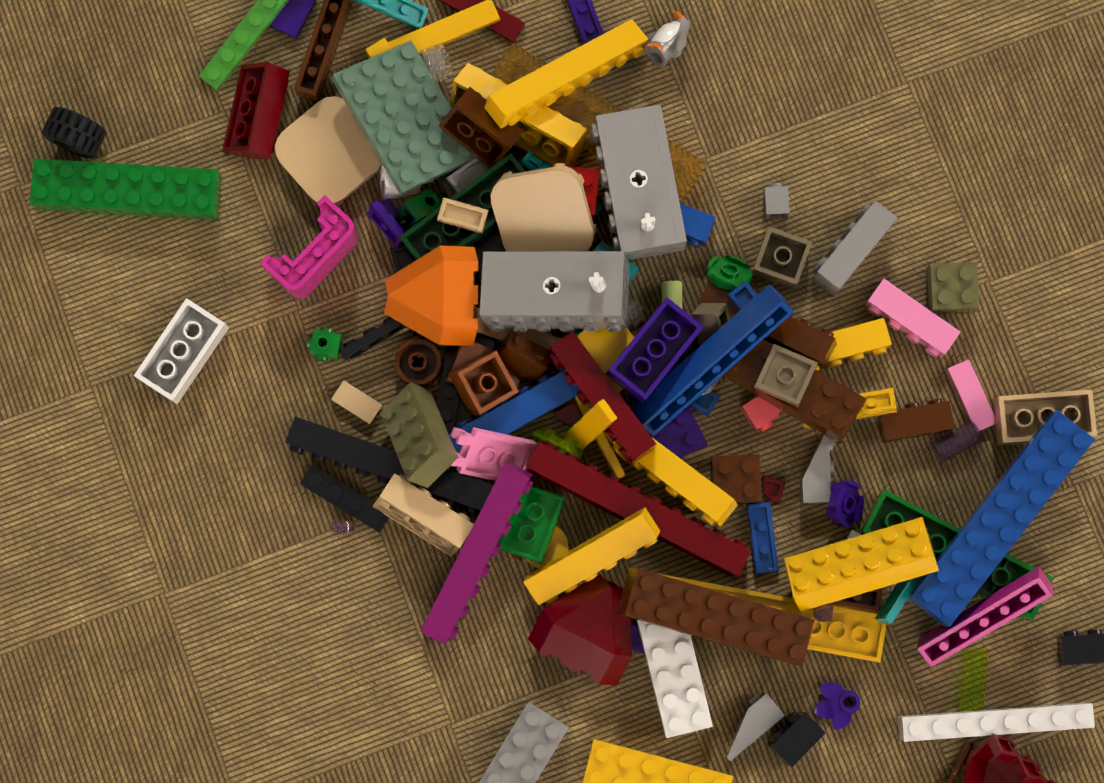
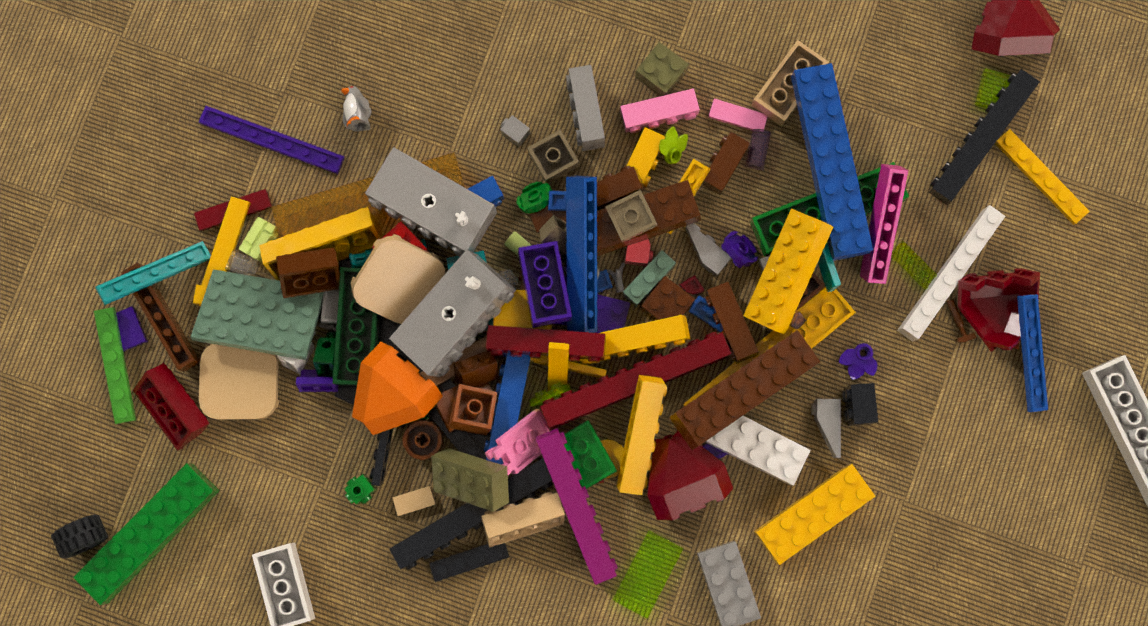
camera: 45 degrees left, 0 degrees up
(319, 257) = (300, 446): dark pink windscreen -> none
(343, 526) = (486, 577): tile -> none
(462, 215) = (354, 331): tan tile -> none
(471, 672) = (647, 574): none -> clear neon green tile
(479, 54) = (260, 233): none -> yellowish green brick
(565, 74) = (321, 190): yellow brick -> none
(569, 414) = (537, 373): dark red tile -> none
(721, 413) = (618, 277): none -> light grey bar
(744, 442) = (649, 278): none -> sand green brick
(769, 554) = (732, 322): none -> reddish brown brick
(889, 359) = (673, 146): none -> lime plate

